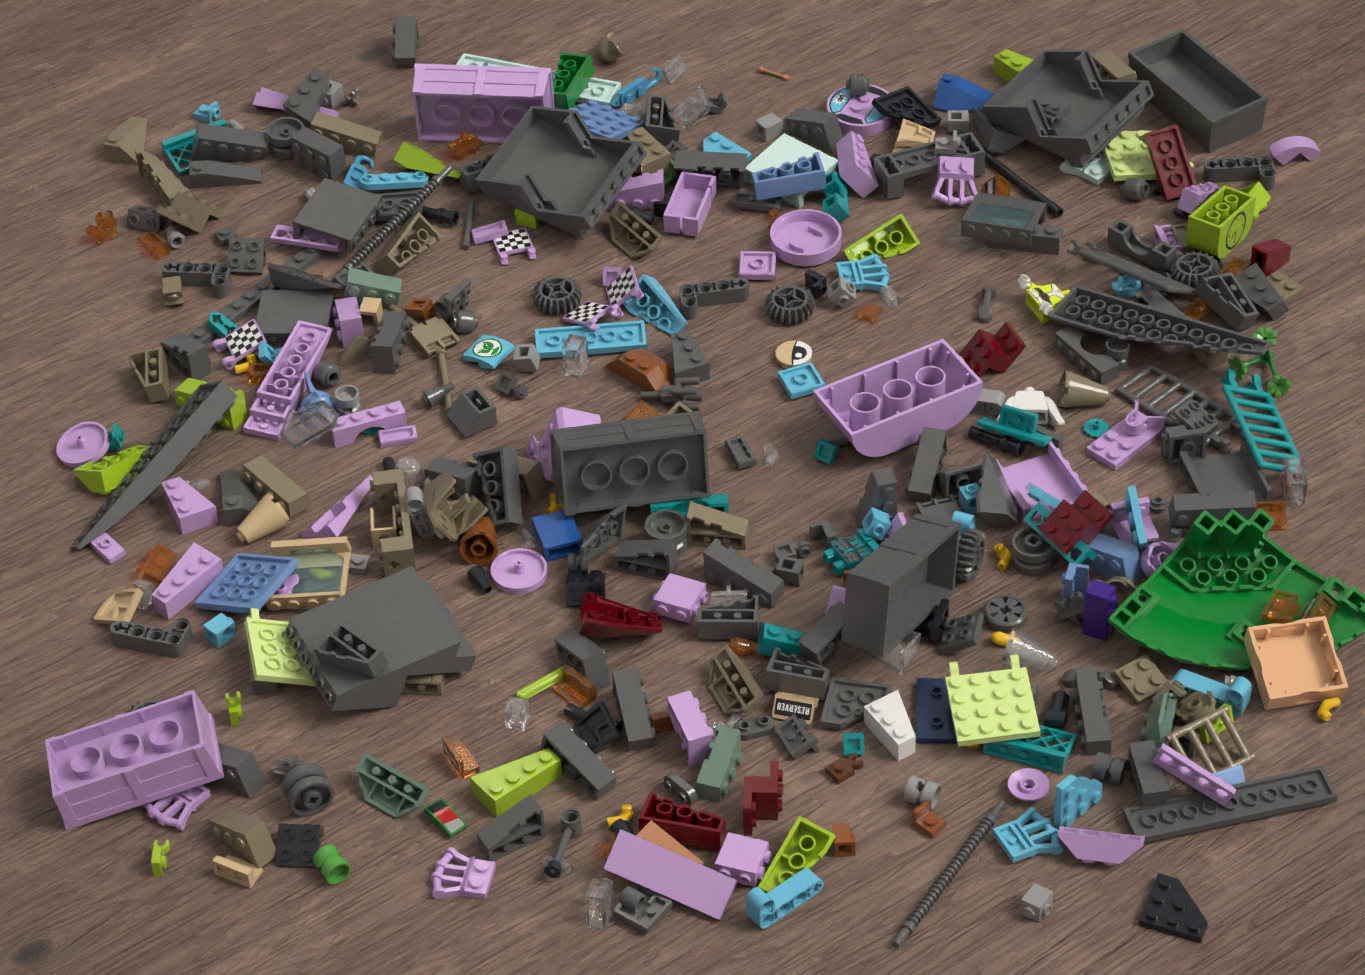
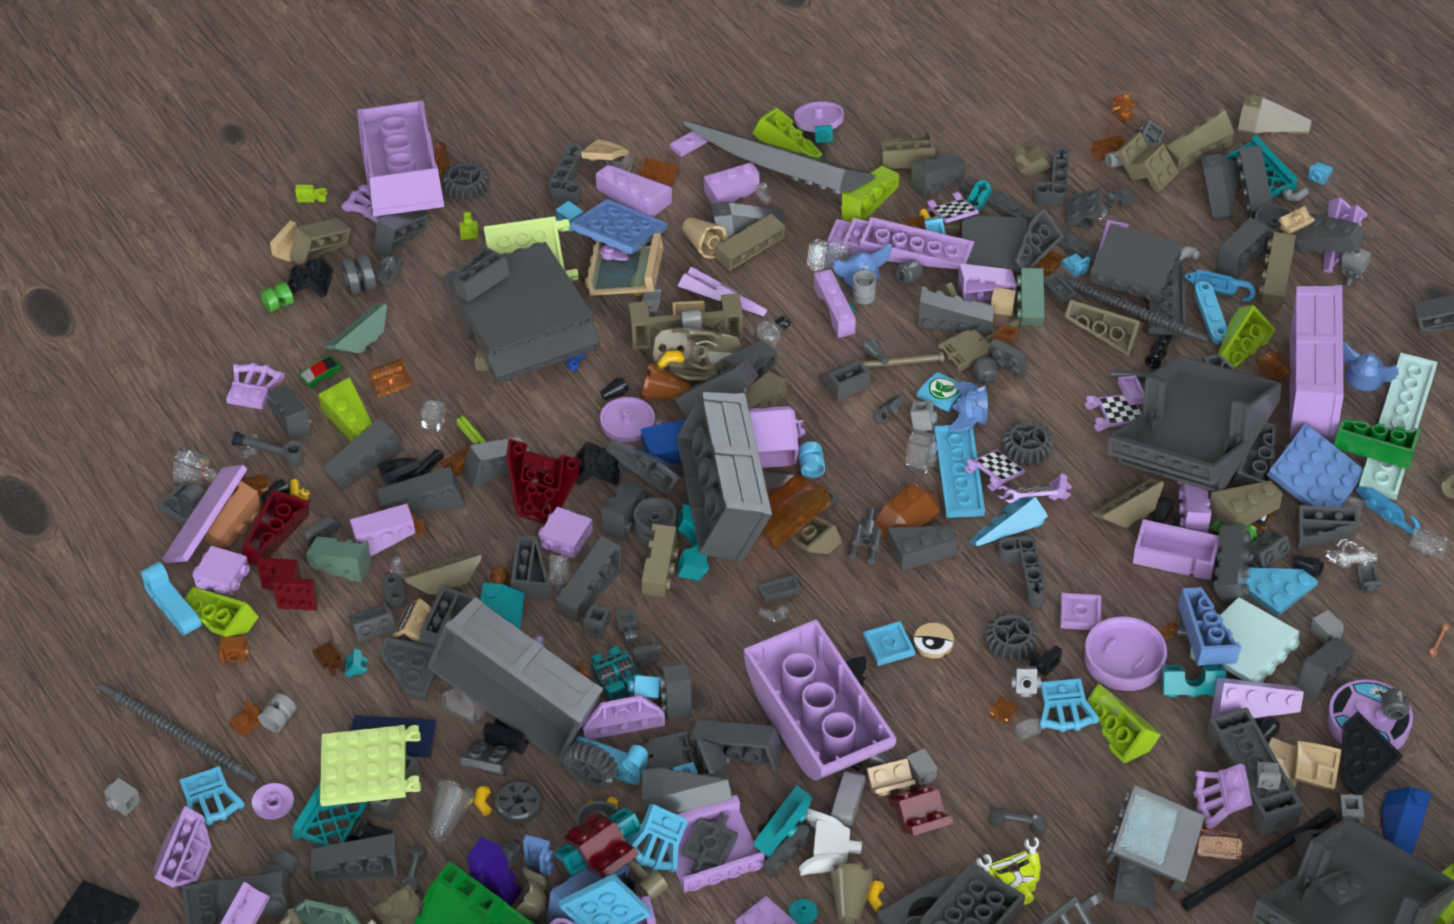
camera: 90 degrees right, 5 degrees up
(299, 108) = (1295, 220): none -> tan hips
(321, 266) = (1076, 265): none -> medium azure bracket
(398, 436) = (823, 329): lavender tile -> none
(455, 524) = (671, 356): none -> yellow arm
(515, 326) = (971, 406): none -> medium blue helmet
(699, 134) = (1311, 565): none -> black cone
(891, 725) = (370, 693): white wedge -> none
(1042, 476) = (709, 843): none -> dark grey plate
(1074, 798) = (232, 830): medium azure plate -> none

